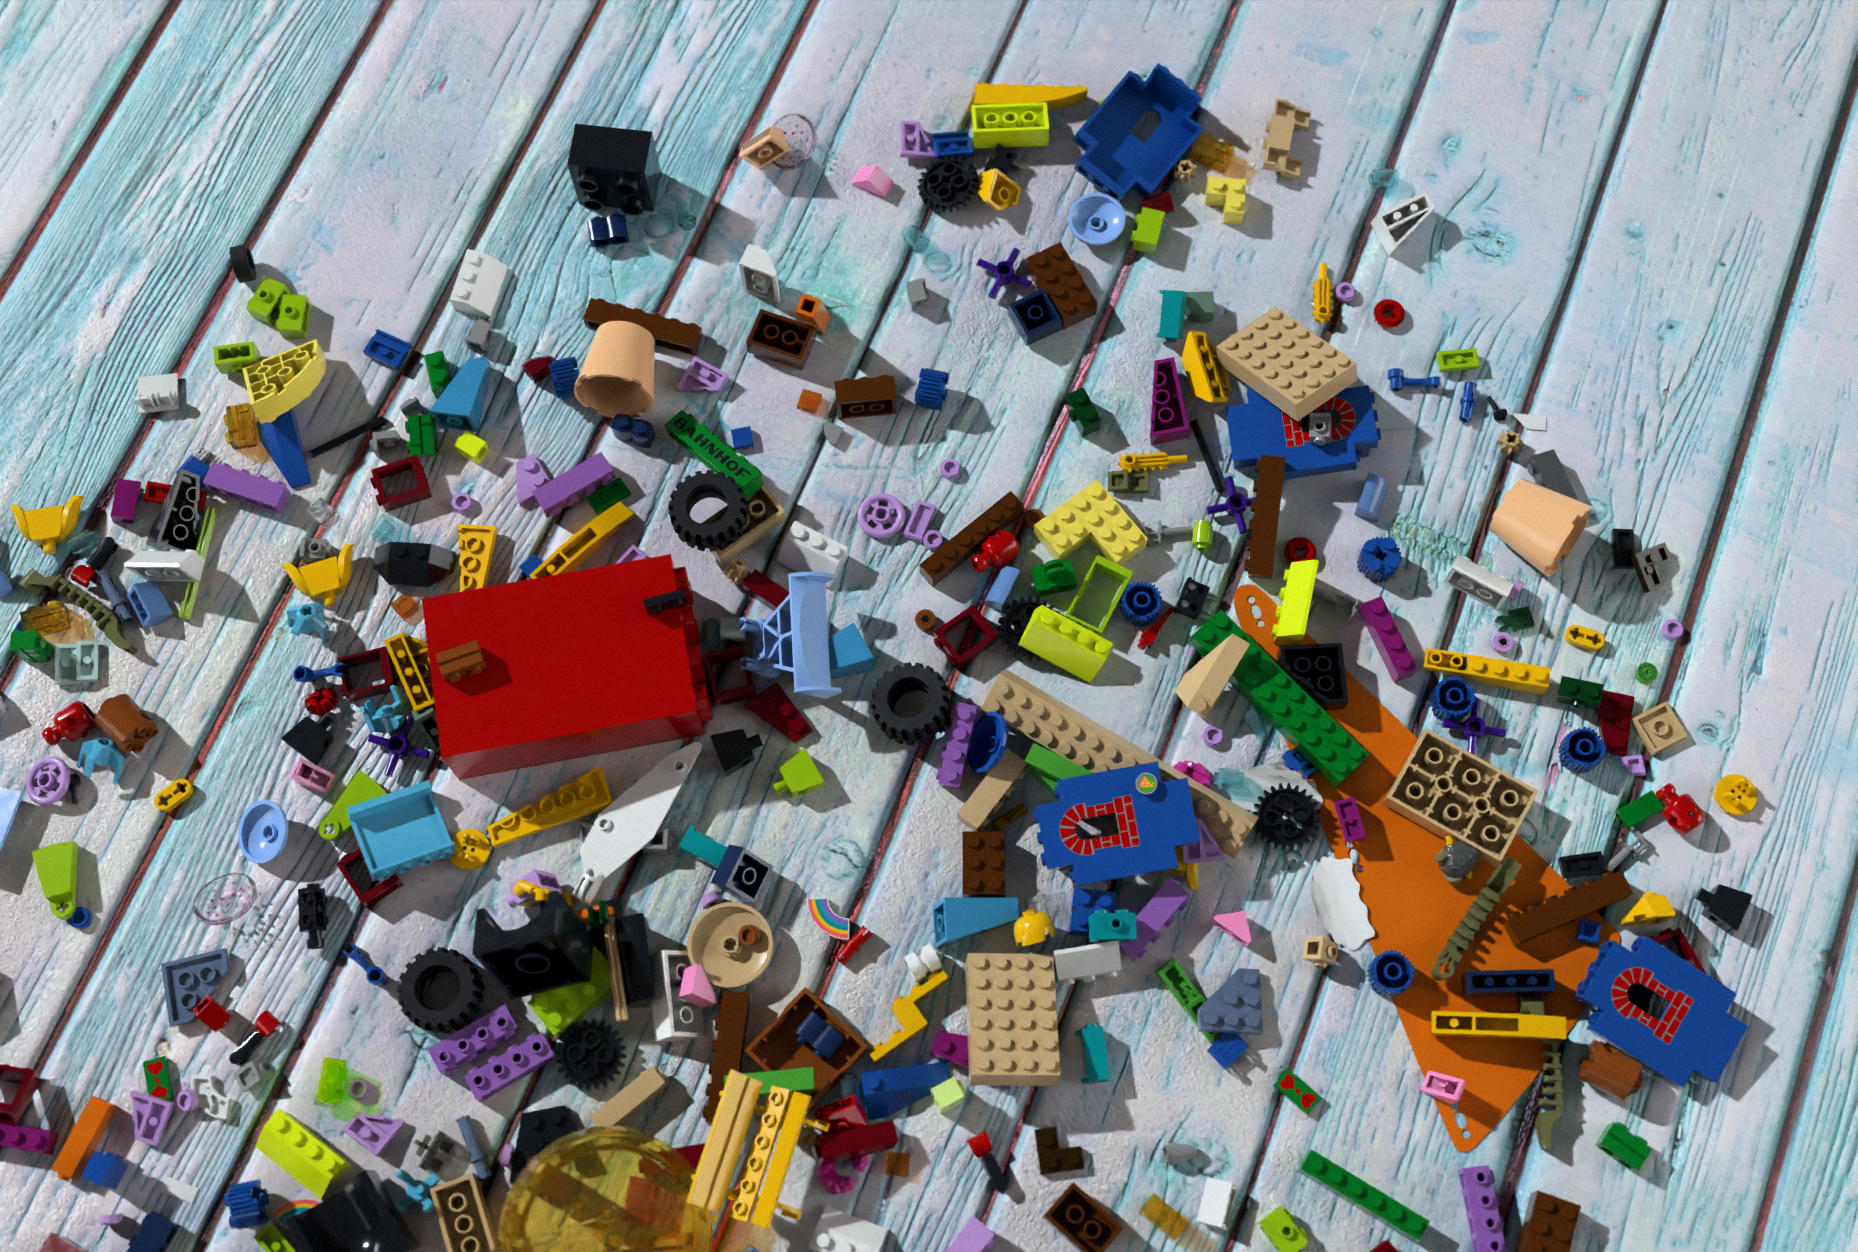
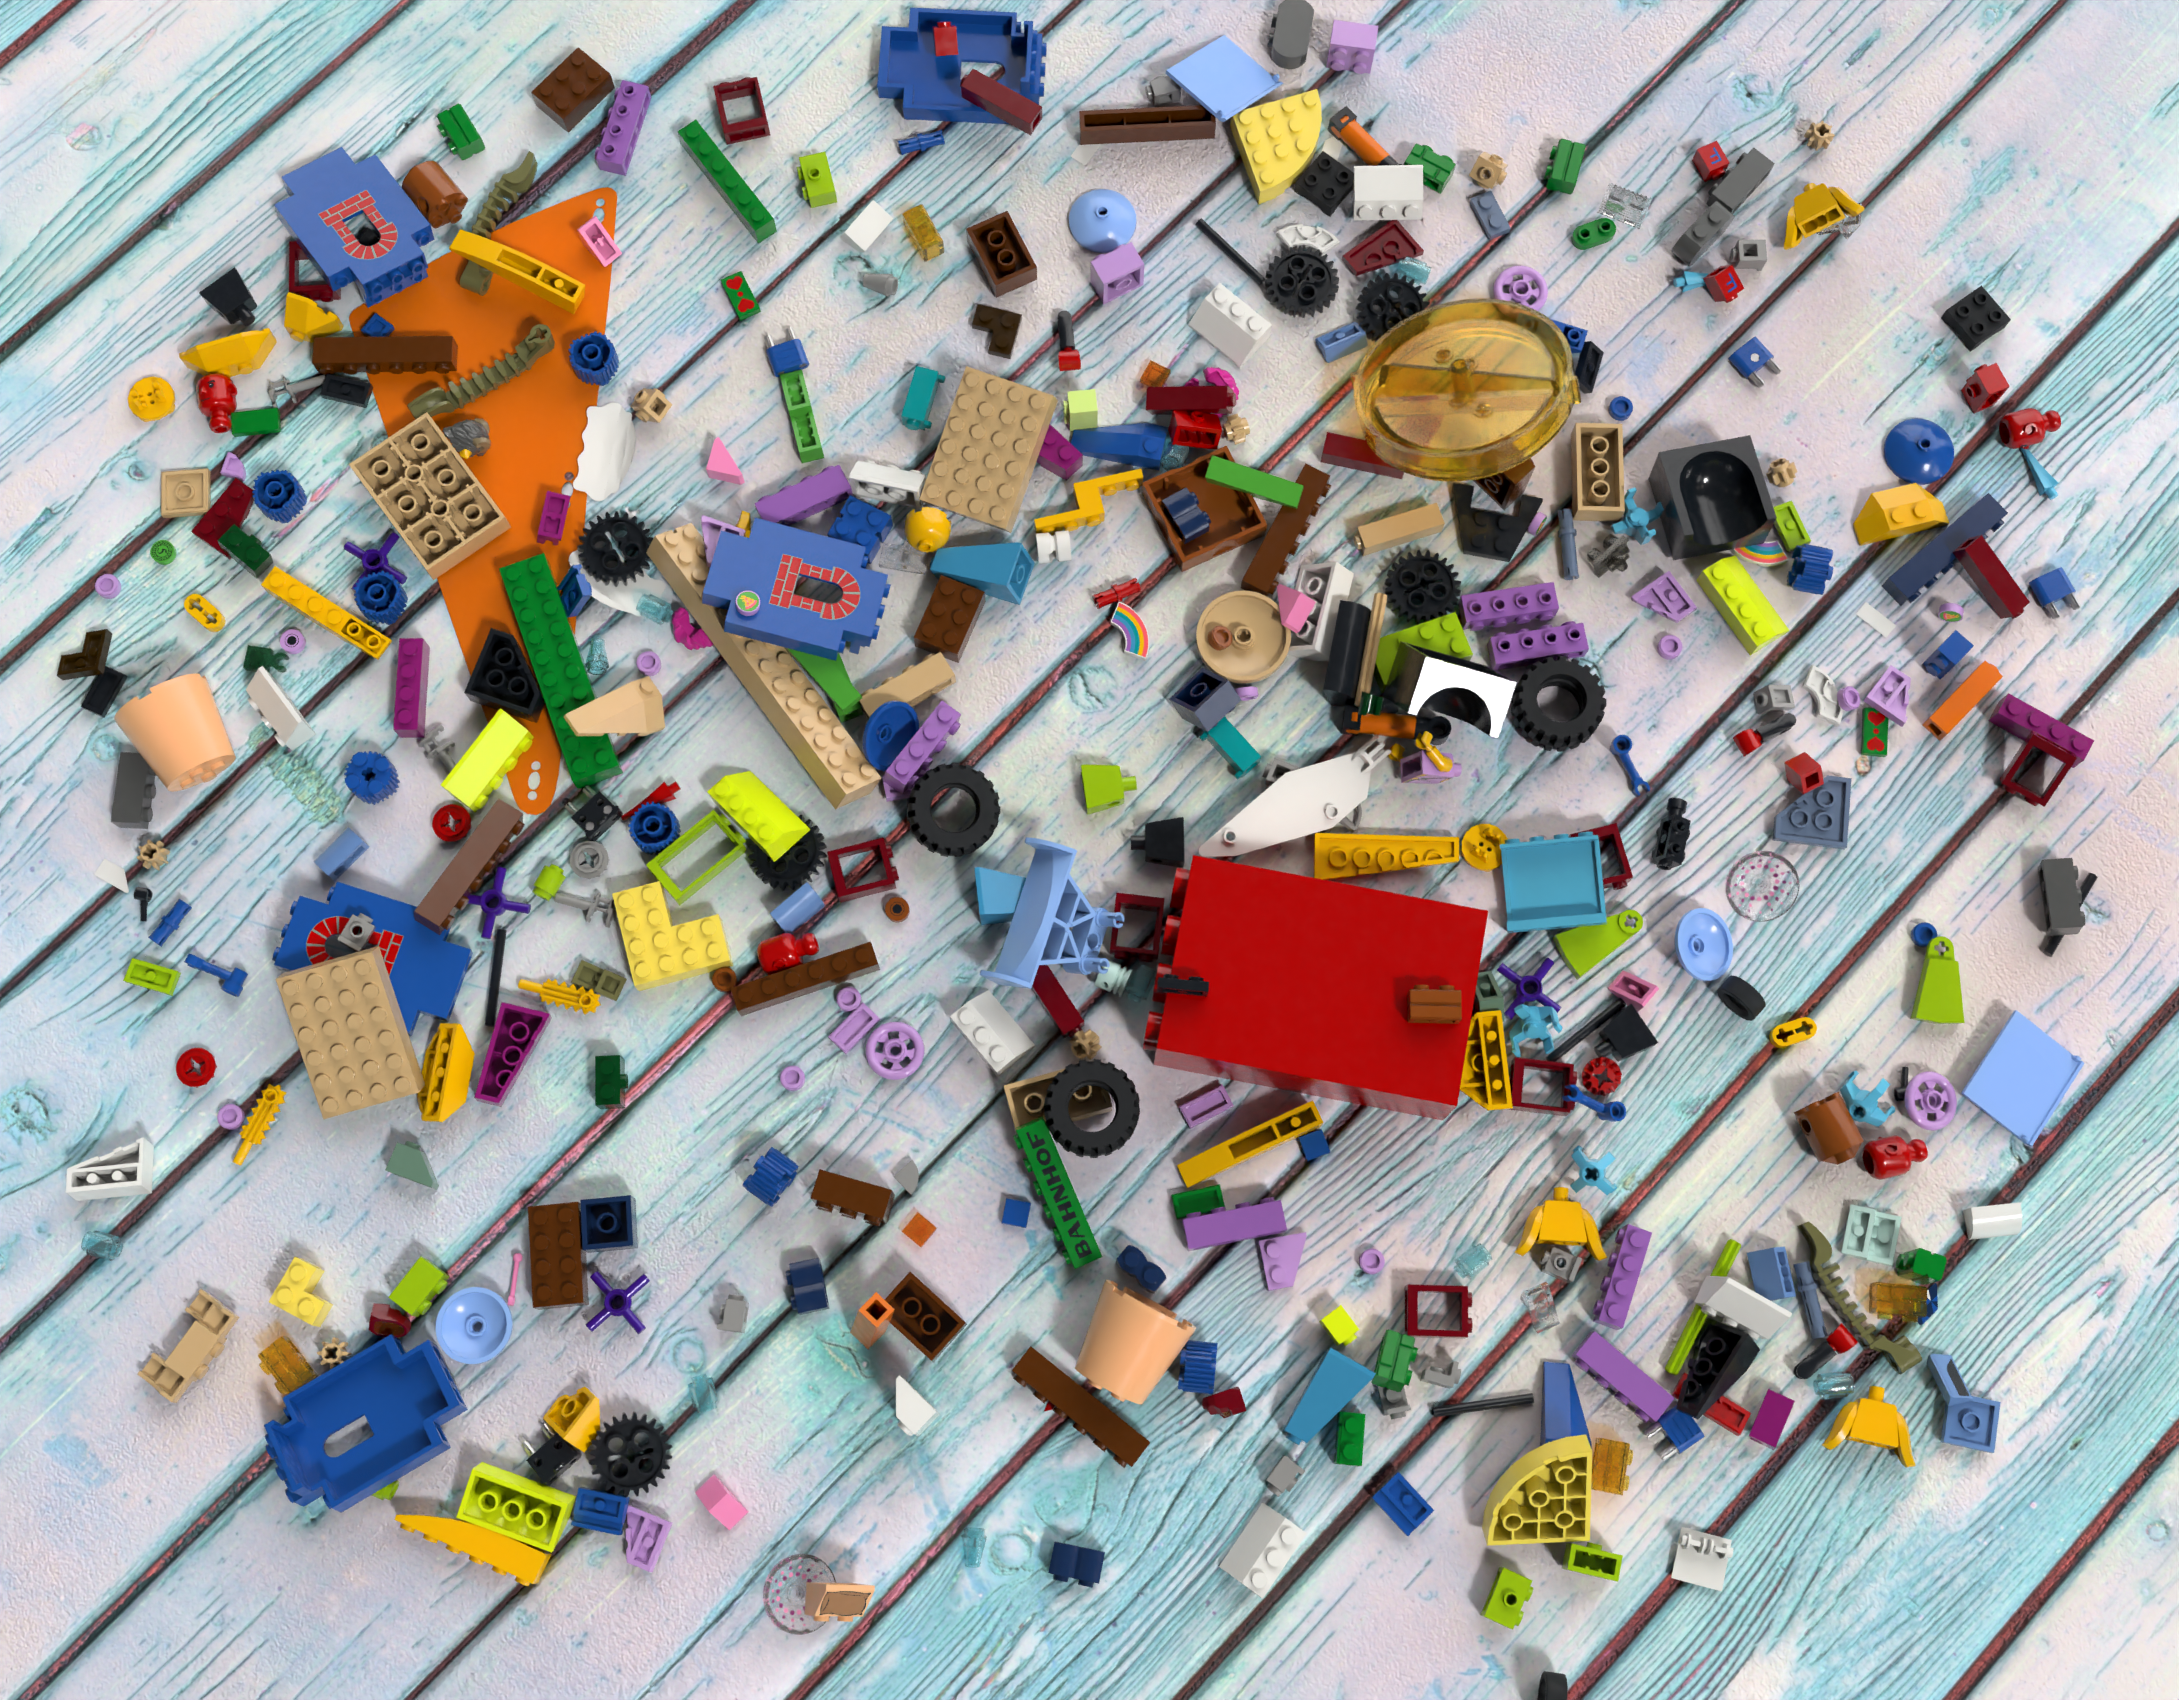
camera: 160 degrees left, 5 degrees up
(221, 799) = (1741, 998): none -> black tyre
(265, 558) = (1622, 1276): none -> medium lavender brick
(266, 300) = (1533, 1635): lime brick -> none
(329, 1083) = (1697, 656): clear neon green brick -> none
(342, 736) = (1586, 1030): none -> black bar
(404, 606) = (1476, 1156): clear orange tile -> none
(413, 563) = (1453, 1202): black wedge -> none
(476, 554) = (1376, 1184): yellow wing -> none
(614, 168) = (1039, 1629): black brick -> none
(702, 378) = (1034, 1309): lavender wing -> none
(725, 1142) = (1330, 413): yellow piece -> none
(779, 711) = (1098, 868): dark red wing -> none
(873, 332) = (808, 1286): none -> dark blue brick
(1010, 816) = (899, 661): pearl gold piece -> none
(1053, 577) = (735, 898): green brick -> none
(1090, 278) = (517, 1257): none -> bright pink hinge
(1112, 926) = (848, 493): teal brick -> none
(1172, 315) = (448, 1158): teal brick -> none
(1179, 557) = (578, 858): none -> light grey gear
(1234, 1005) = (762, 390): sand blue plate -> none
(1508, 983) = (484, 306): dark blue brick -> none
(1516, 589) = (240, 690): lavender tile -> none
(1693, 854) = (231, 354): none -> yellow wedge

